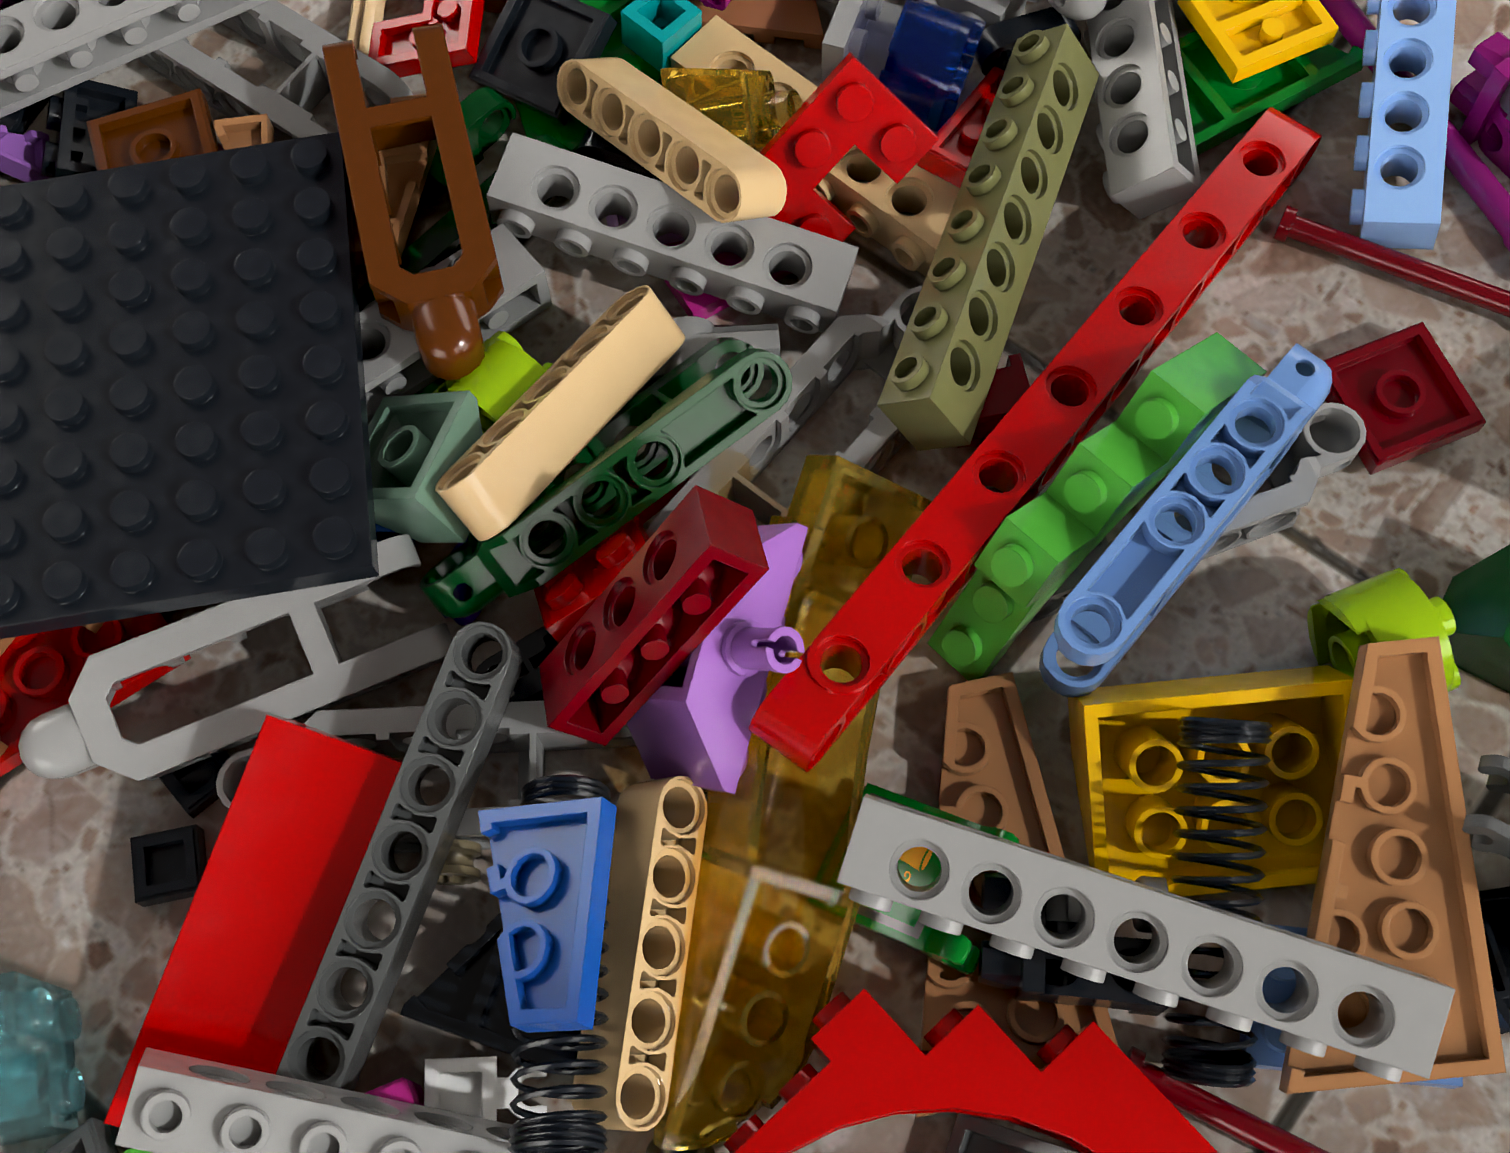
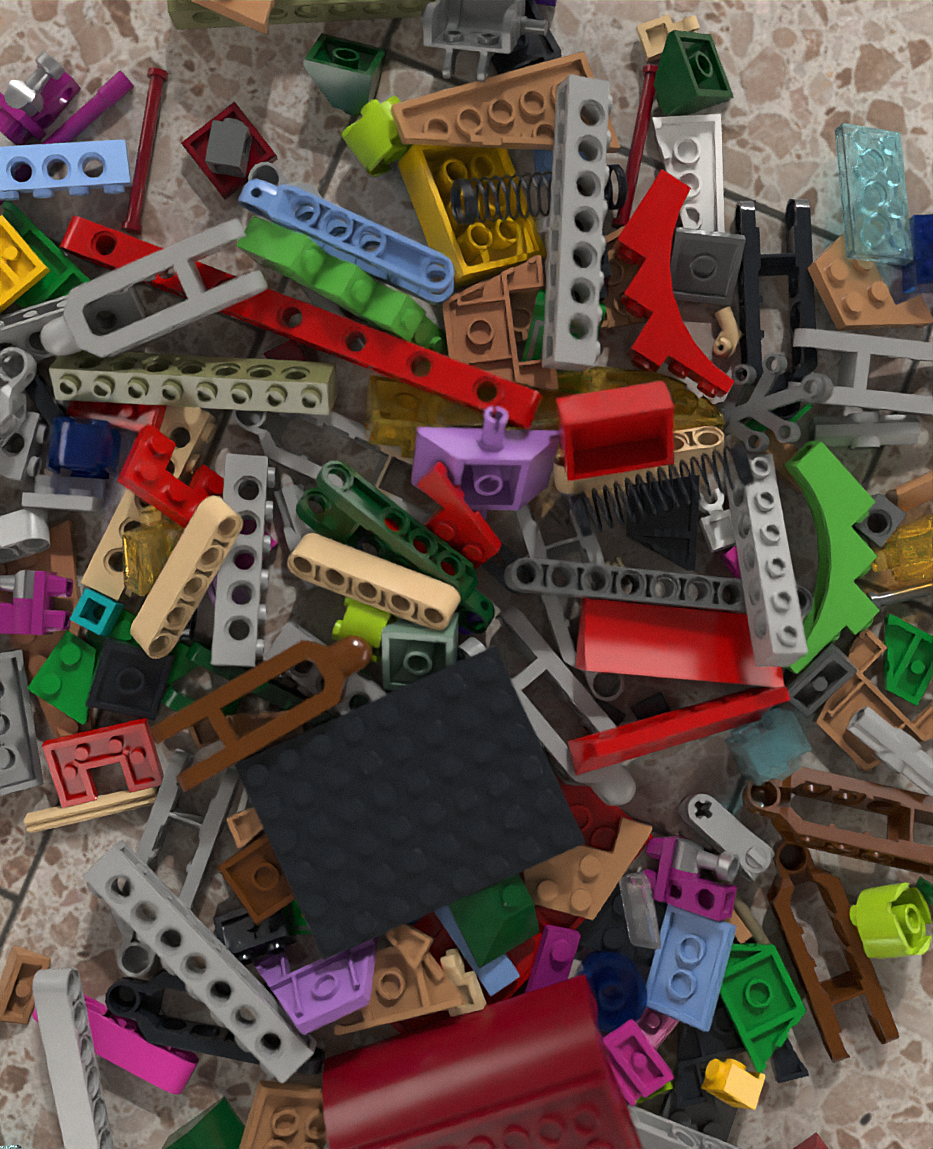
camera: 110 degrees left, 20 degrees up
(110, 874) = (673, 728): none -> red arch
(552, 903) = (641, 494): blue wing -> none
(652, 616) = (489, 490): dark red brick -> none
(697, 887) = (616, 430): none -> red piece
(973, 727) = (482, 327): none -> nougat wing
(1165, 239) = (72, 334): none -> light grey piece
(1401, 380) = (228, 148): none -> dark grey brick

